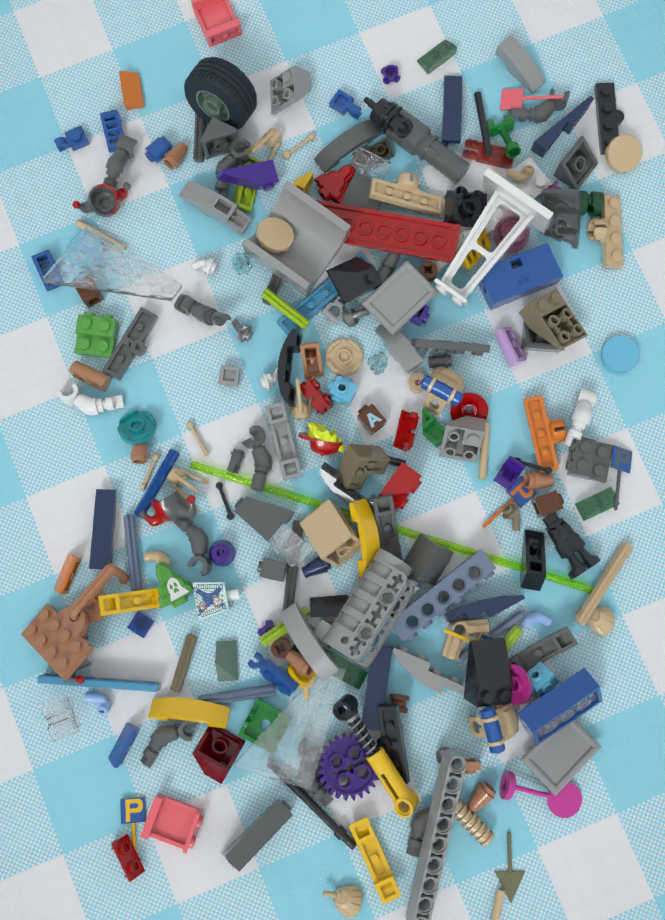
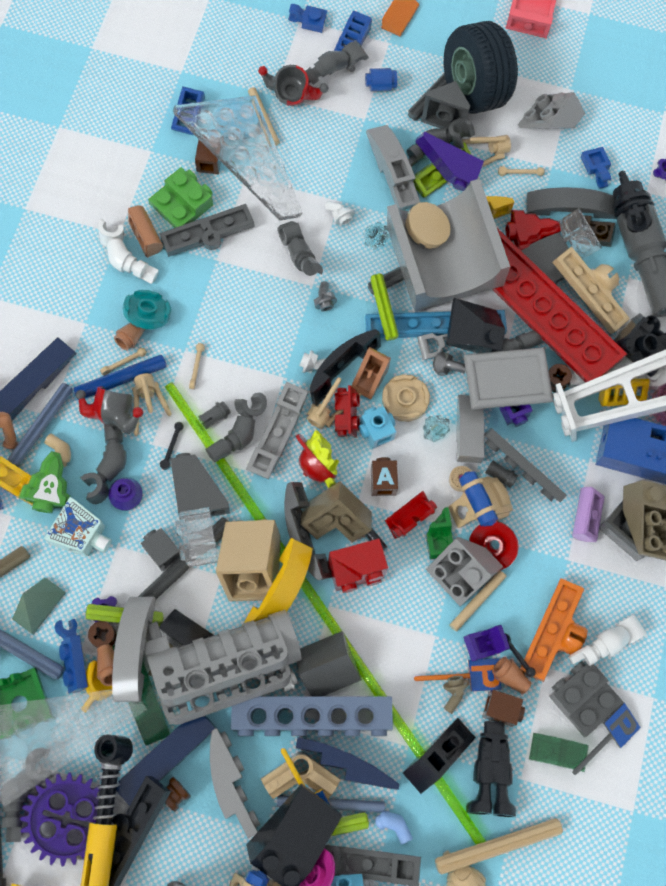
camera: 30 degrees right, 10 degrees down
(175, 156) = (393, 96): nougat cone -> none
(229, 376) = (276, 330): light grey plate -> none
(316, 567) = (205, 581): dark blue cone -> none
(386, 525) = (313, 594): dark grey slope -> none

